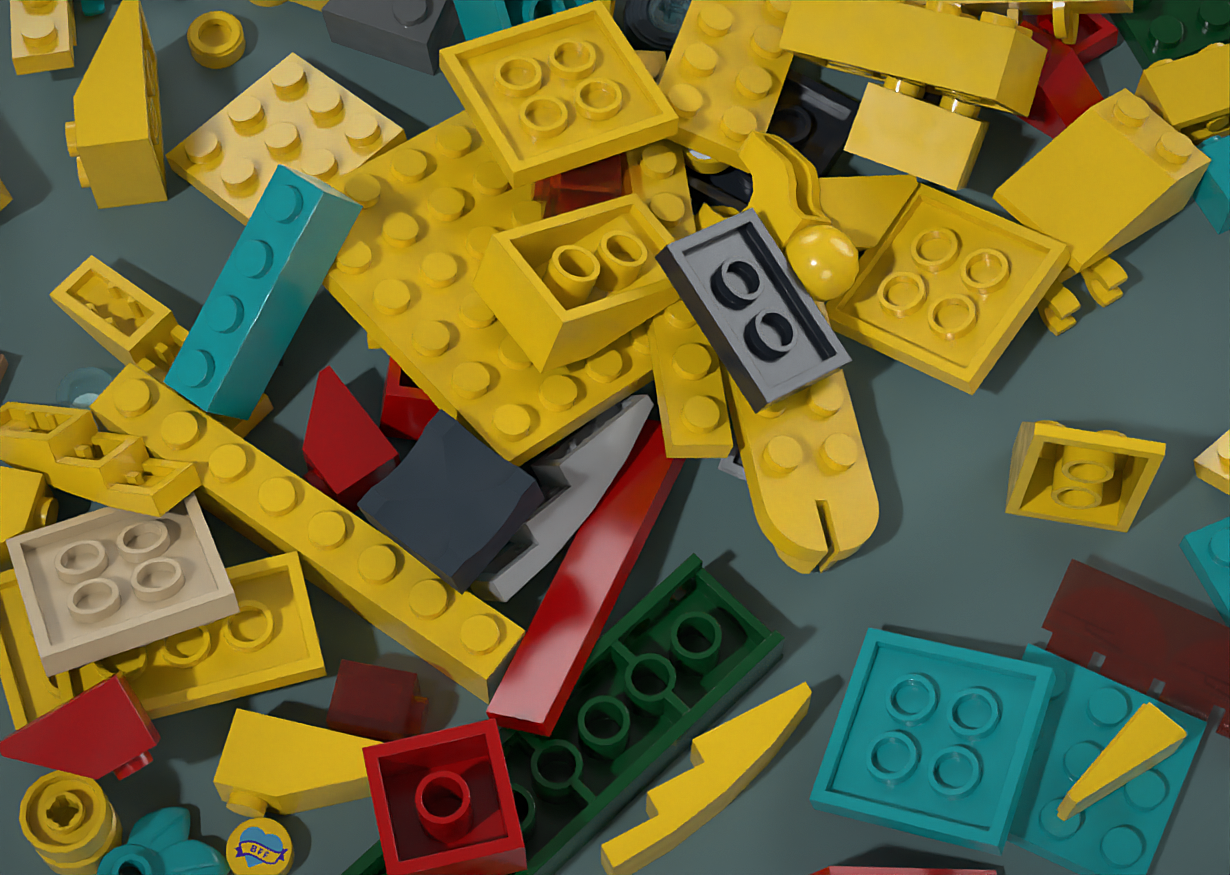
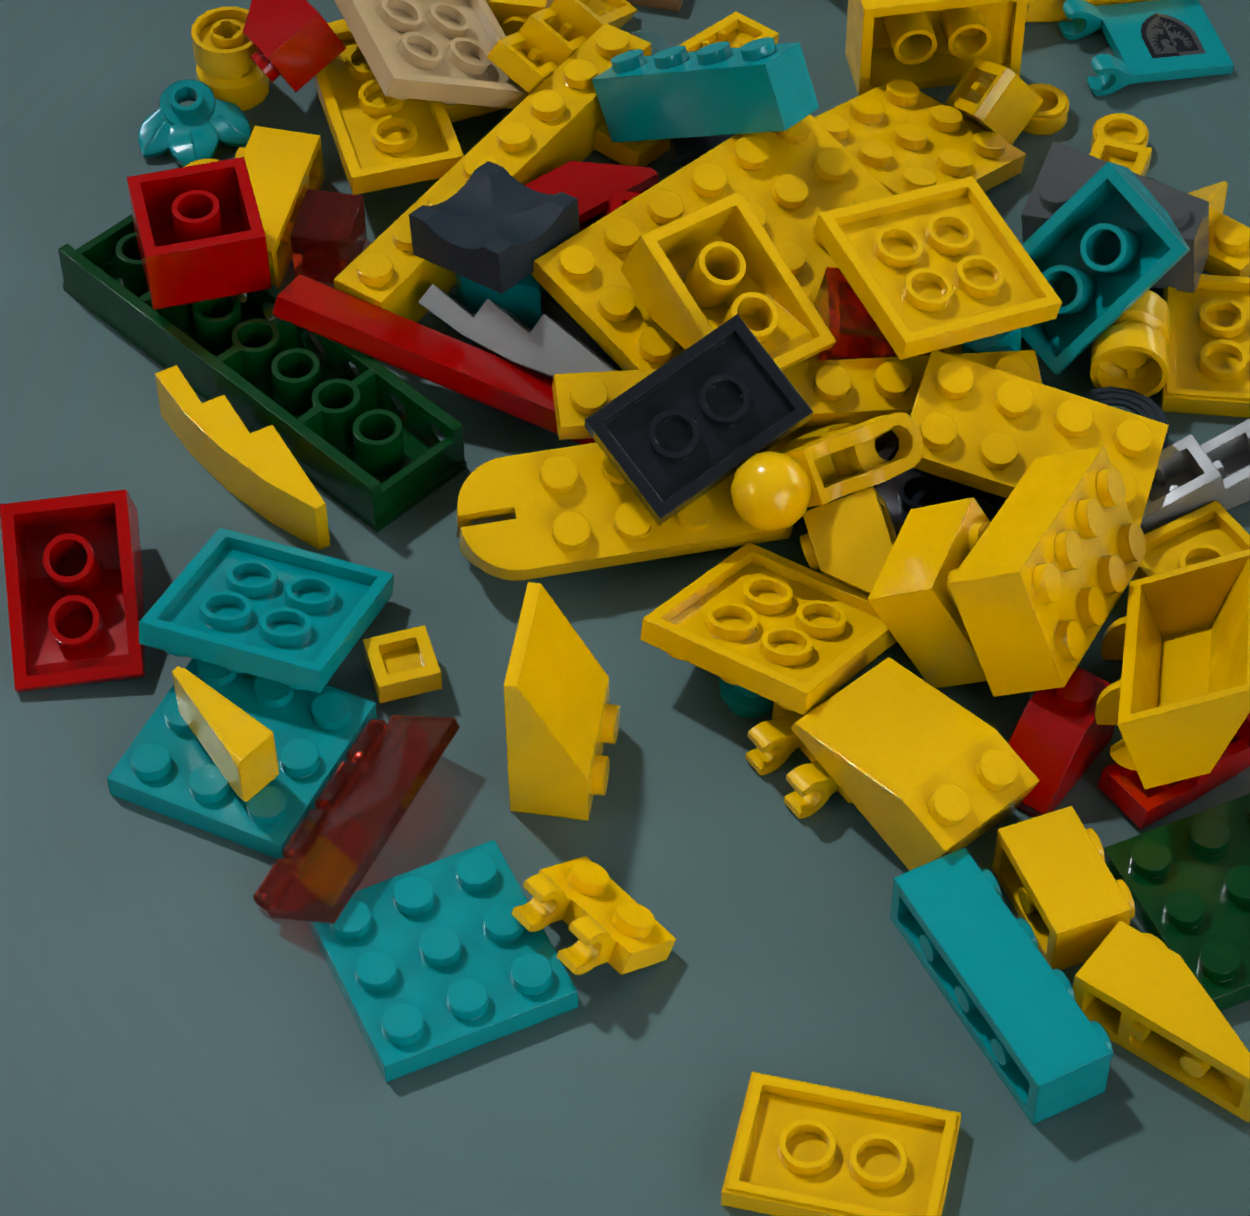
camera: 90 degrees right, 15 degrees down
(221, 69) = (995, 99): none -> yellow slope
(979, 617) = (402, 664): none -> yellow plate

